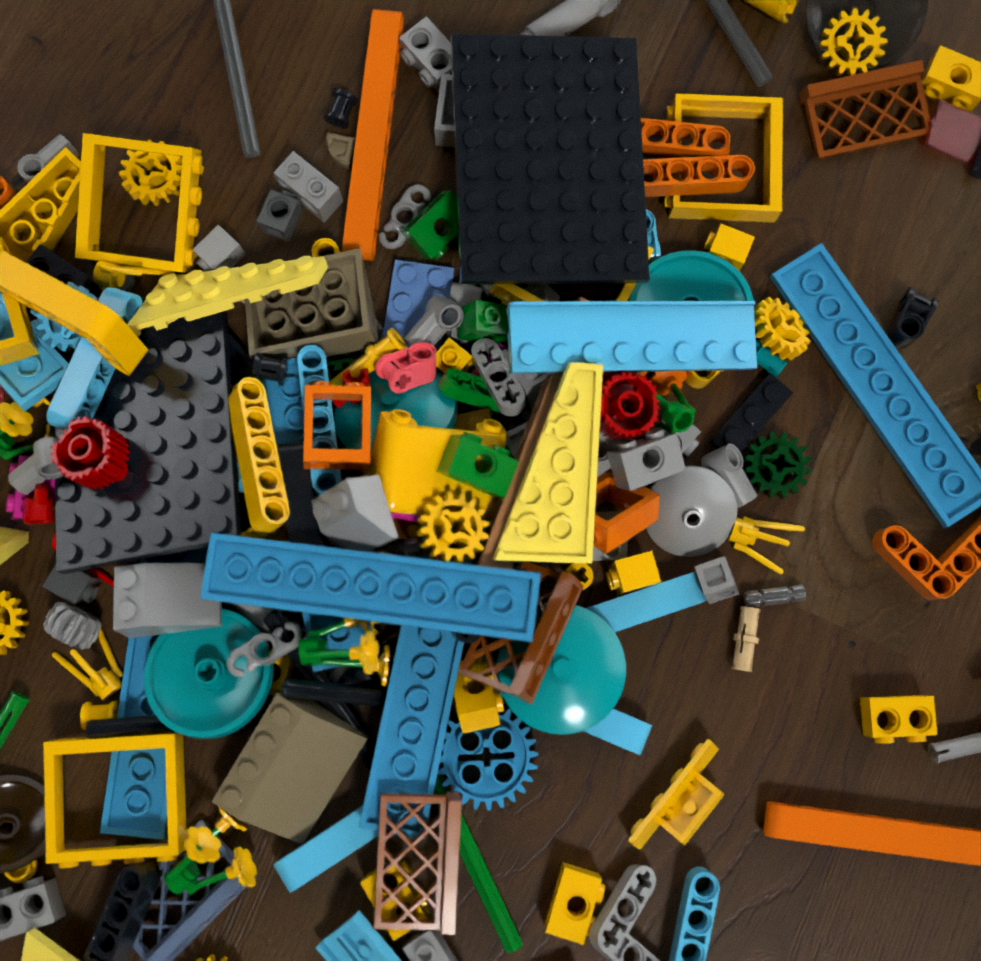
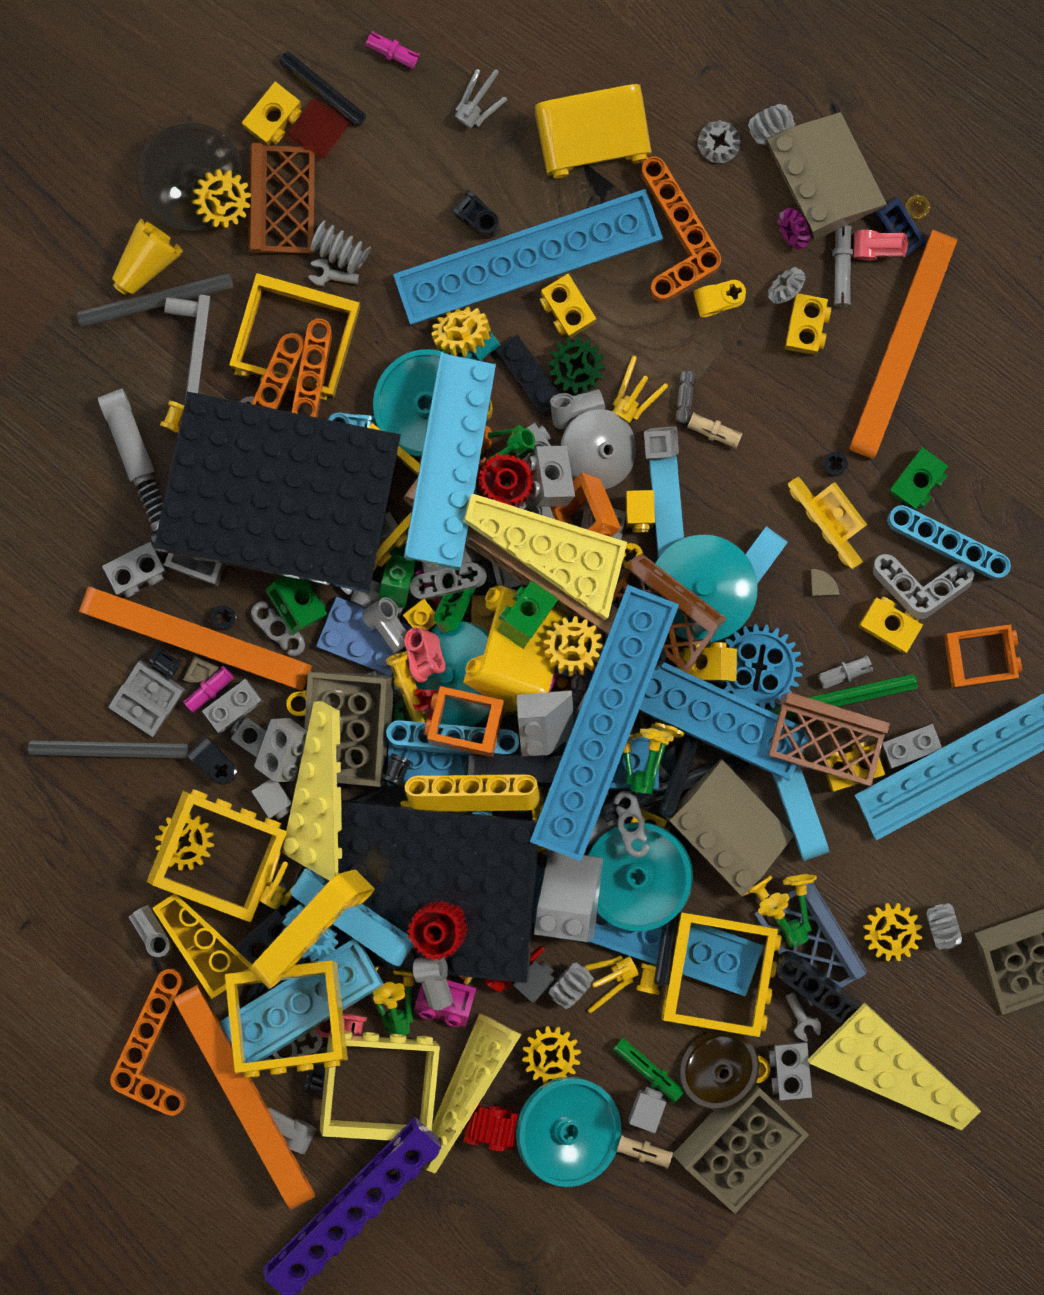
camera: 75 degrees left, 5 degrees up
(38, 508) = (466, 993): red piece -> none
(88, 907) = (801, 1017): none -> light grey bar
(245, 181) = (209, 758): none -> black piece
(268, 242) = (281, 750): none -> light grey brick
(298, 101) = (146, 698): none -> light grey slope
(322, 160) = (209, 689): none -> dark pink pin
(401, 149) = (222, 609): none -> black bush
(505, 861) = (845, 672): none -> light grey axle
(602, 808) = (823, 584): none -> dark tan tile
(721, 57) = (200, 311): none -> light grey piece
(729, 245) = (377, 355): yellow brick -> none
(743, 779) = (843, 464): none -> black bush
(773, 900) = (923, 464): none -> green brick
(800, 180) = (330, 274): none -> light grey bar
(834, 179) = (339, 248): none -> light grey piece
(843, 444) = (573, 304): none -> yellow brick
(898, 604) = (714, 298): none -> yellow piece
(937, 682) = (786, 285): none -> light grey gear

